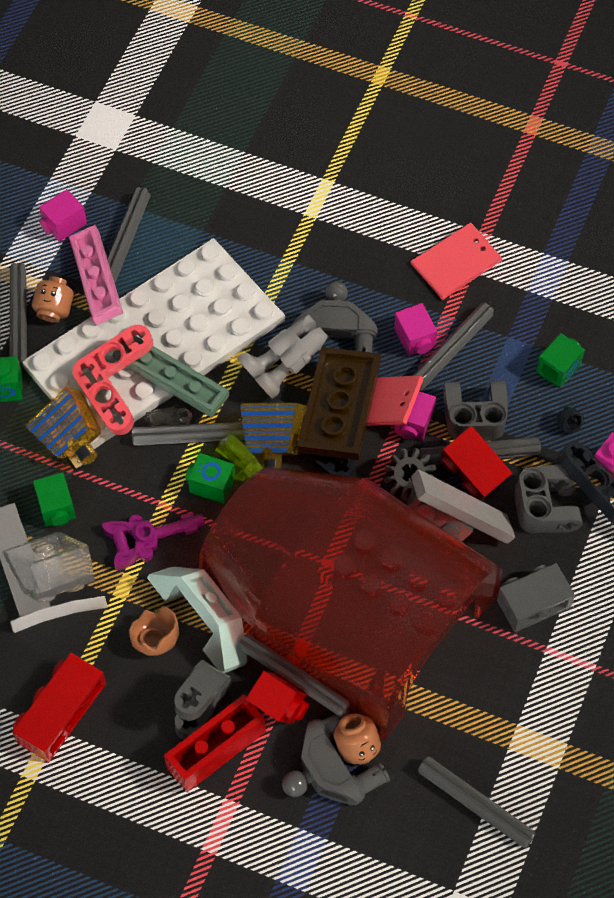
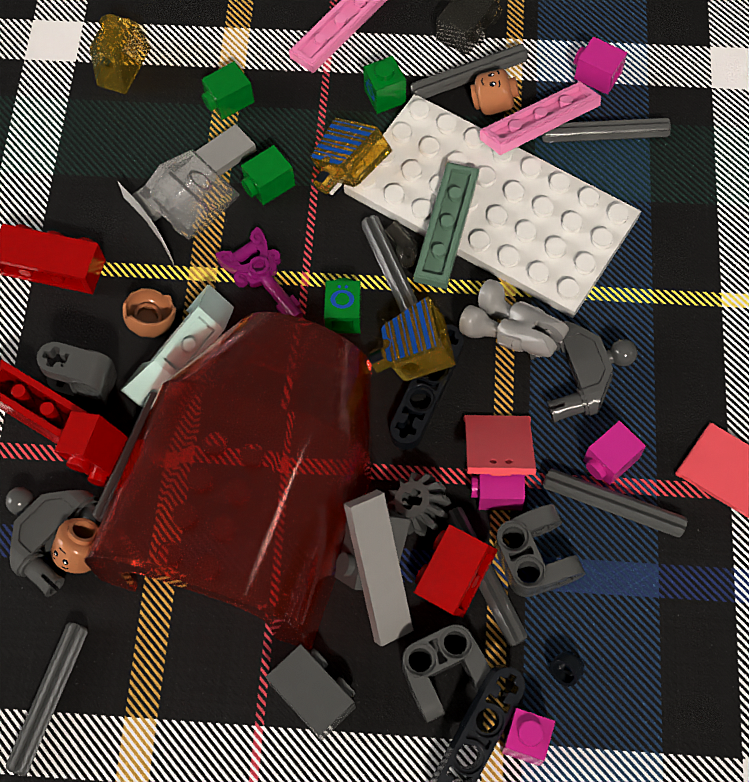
camera: 75 degrees right, 5 degrees up
(103, 370) = (421, 160): coral beam -> none
(240, 456) = (380, 316): clear neon green slope -> none
(339, 403) = (476, 399): dark brown plate -> none
(560, 360) = (645, 633): green brick -> none

